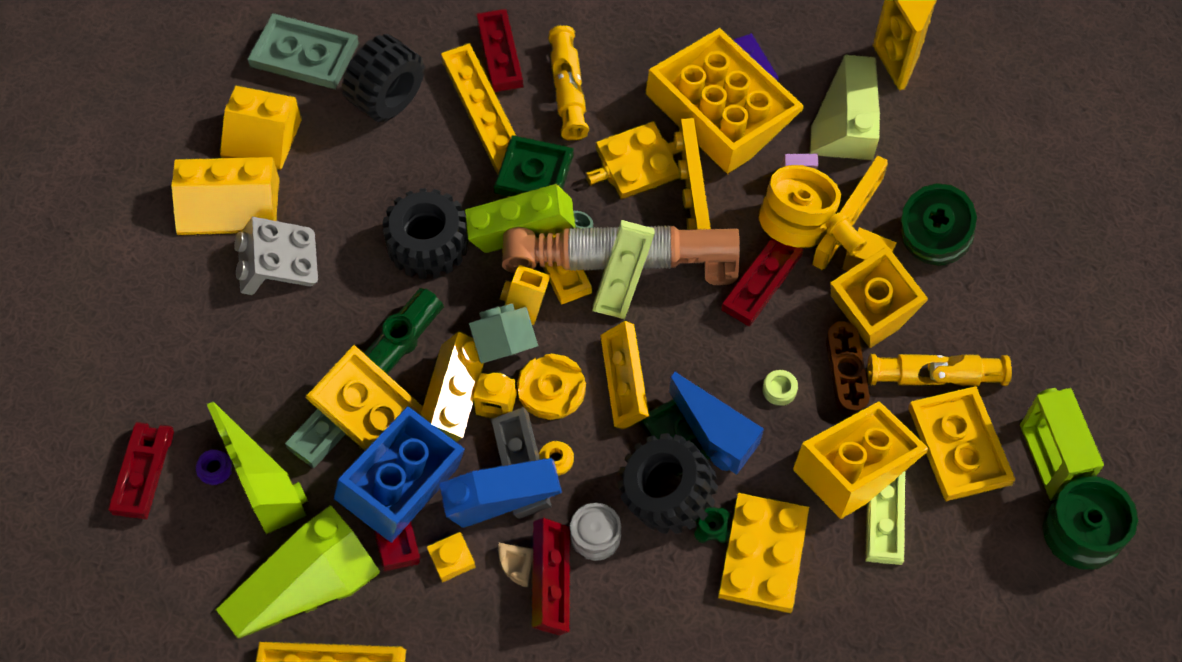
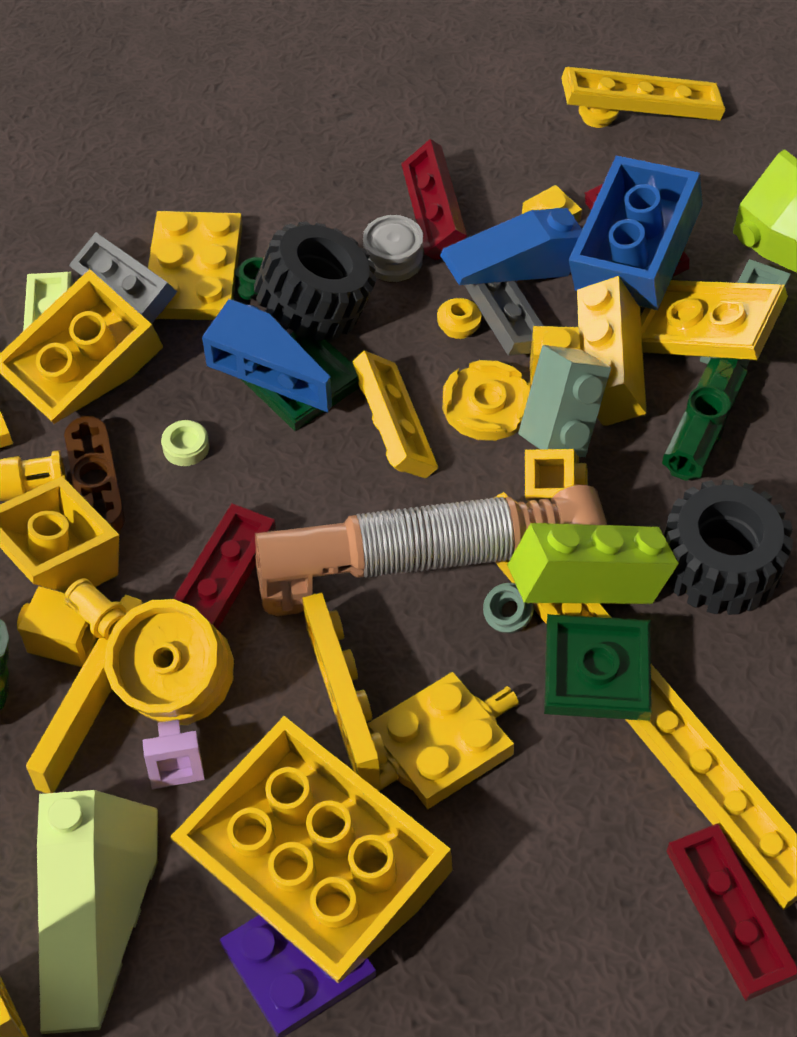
camera: 170 degrees right, 5 degrees down
(308, 570) = (726, 162): lime wedge -> none
(516, 562) = (476, 216): tan tile -> none
(568, 83) = (592, 866): yellow piece -> none
(623, 269) = (417, 495): yellowish green tile -> none
(824, 525) = (125, 275): none -> plate

